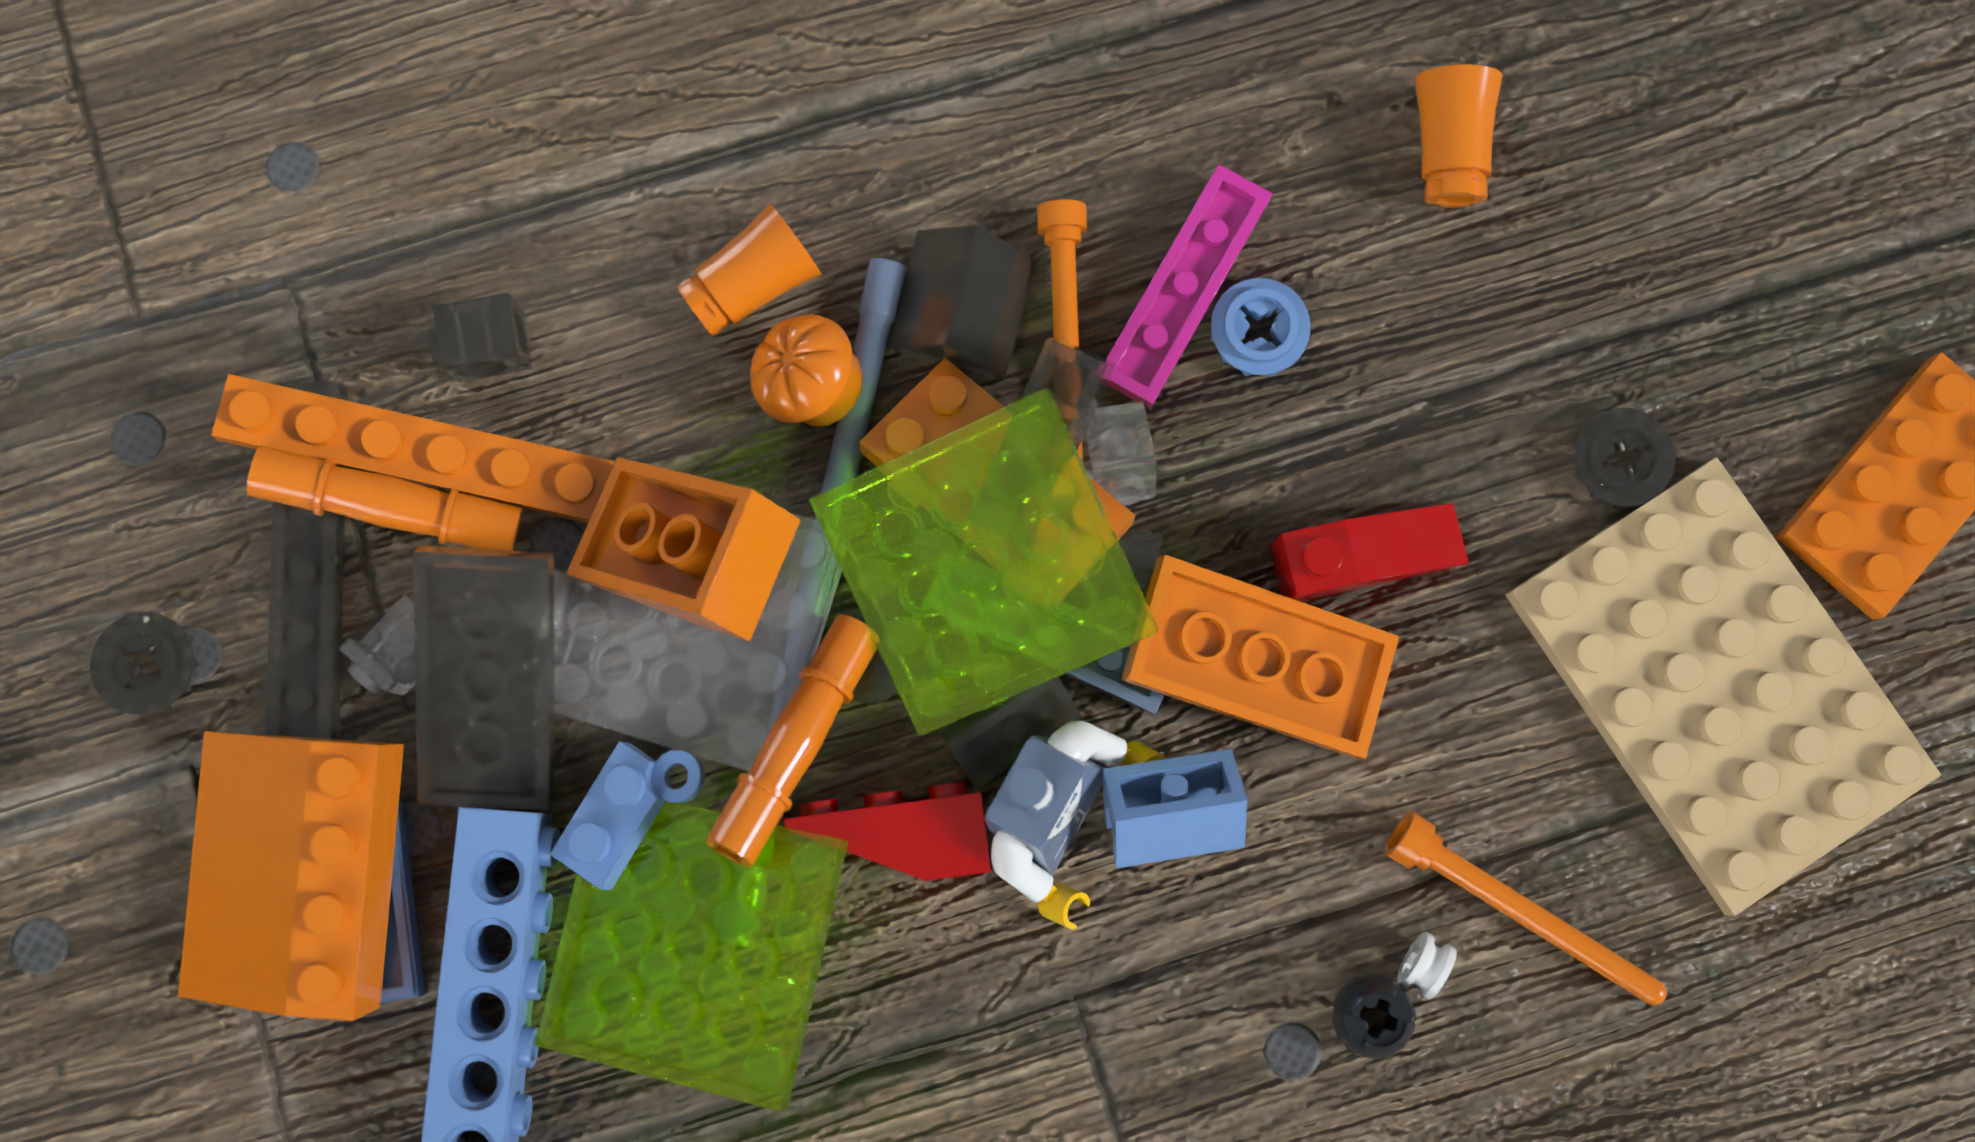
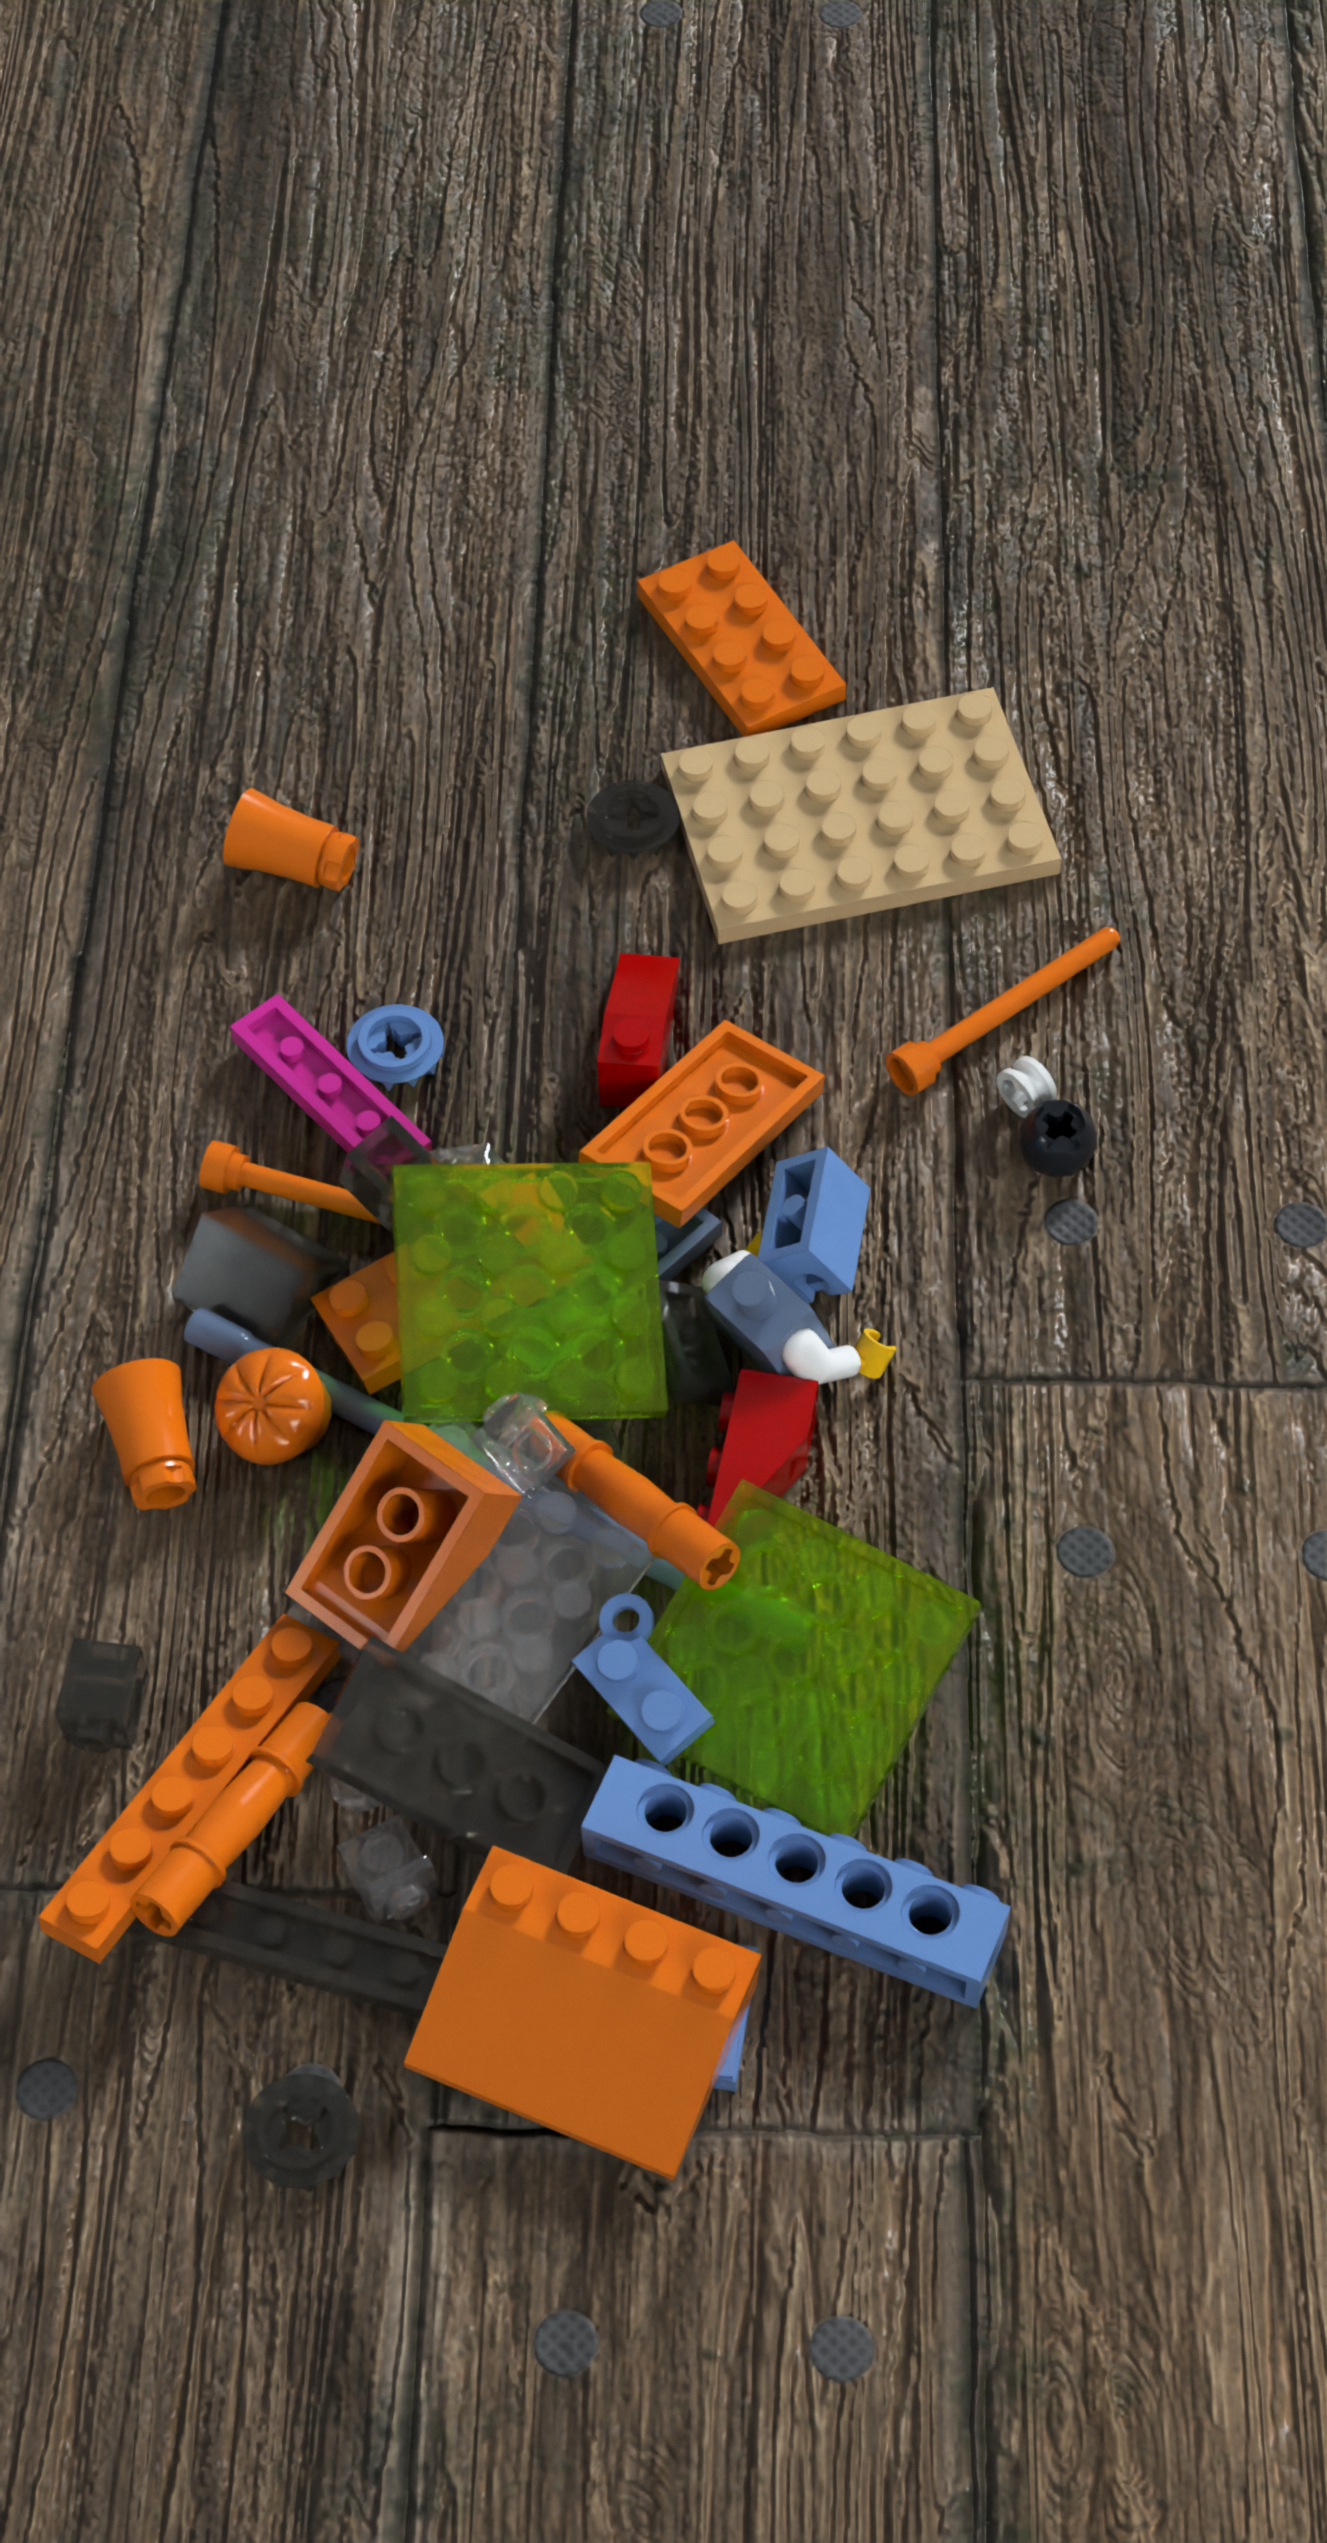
camera: 65 degrees left, 25 degrees down
(809, 619) = (522, 1442): none -> clear bracket

